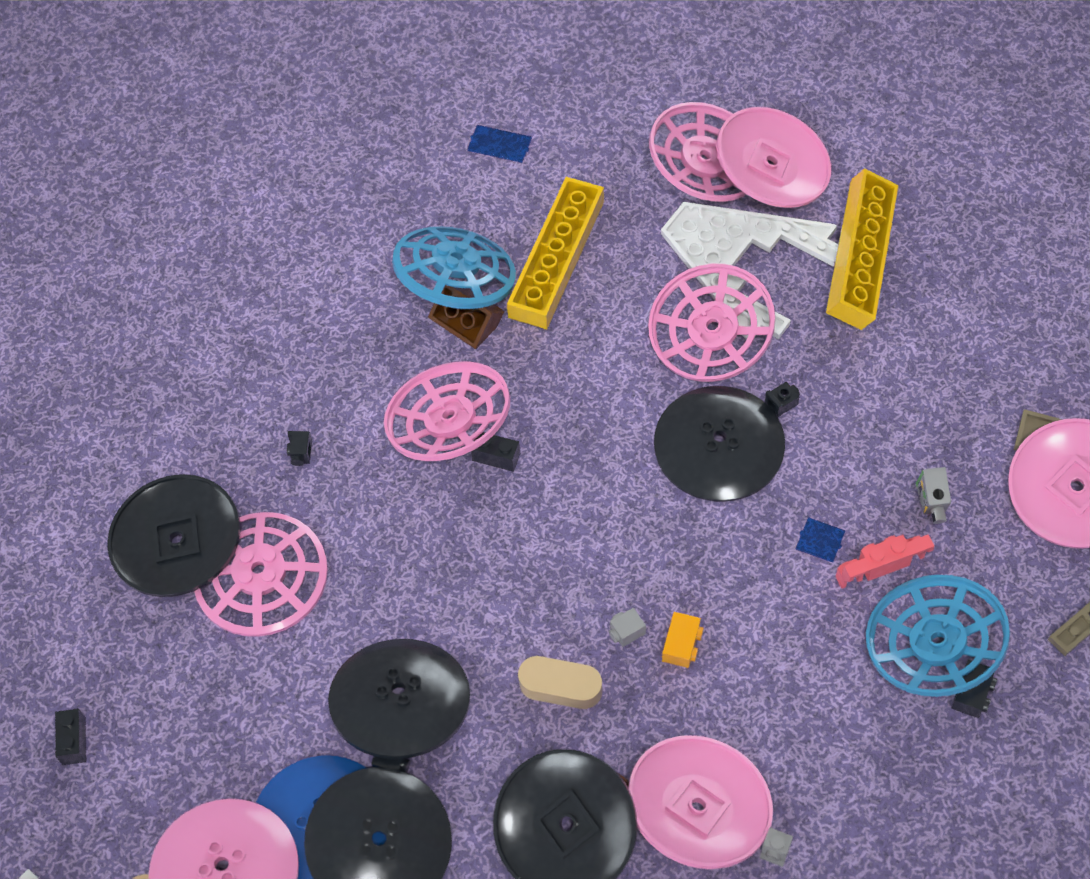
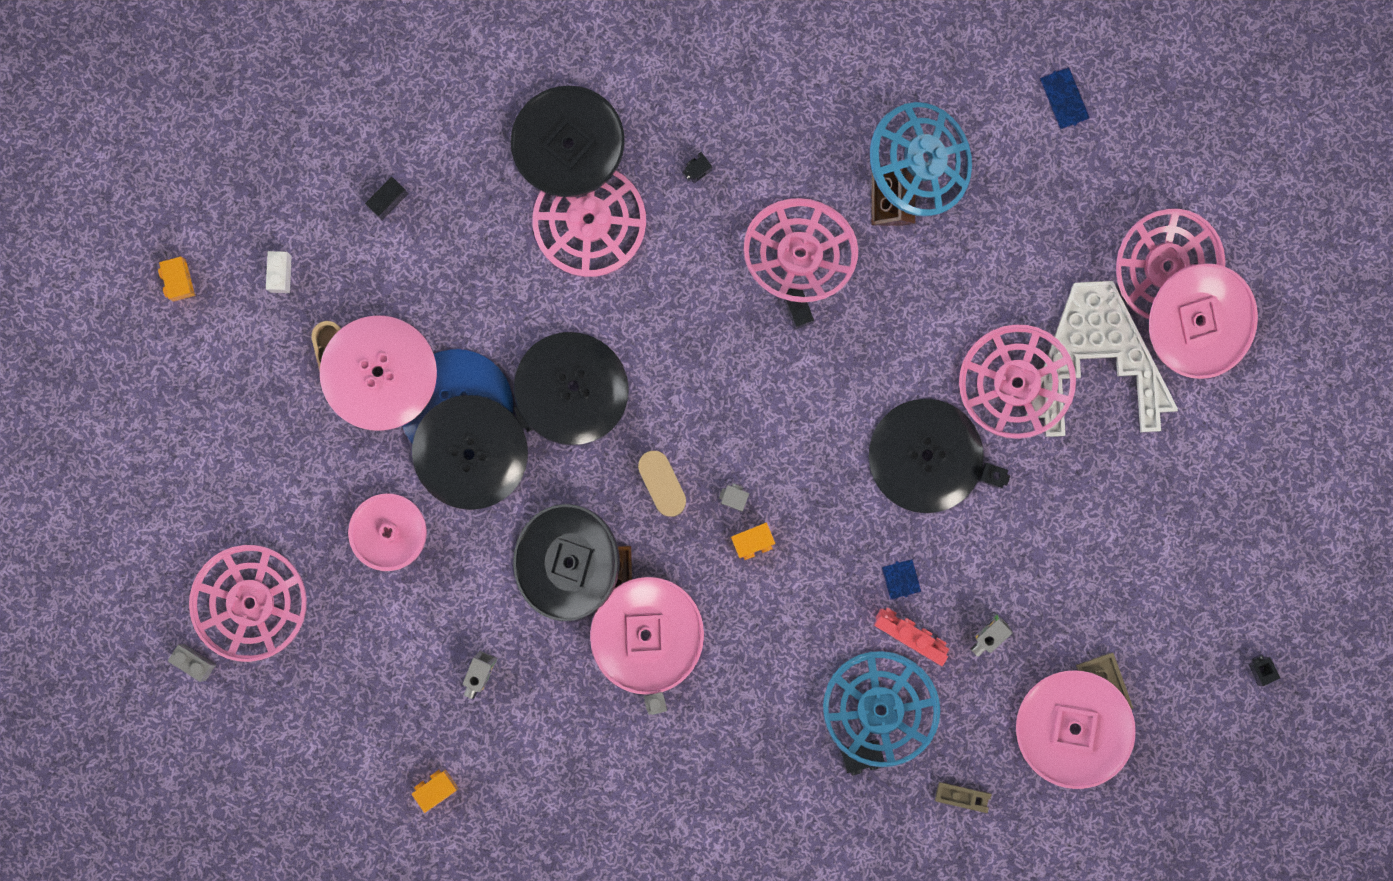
camera: 45 degrees right, 25 degrees up
(555, 253) = (994, 221): yellow brick -> none
(862, 249) = (1167, 446): yellow brick -> none

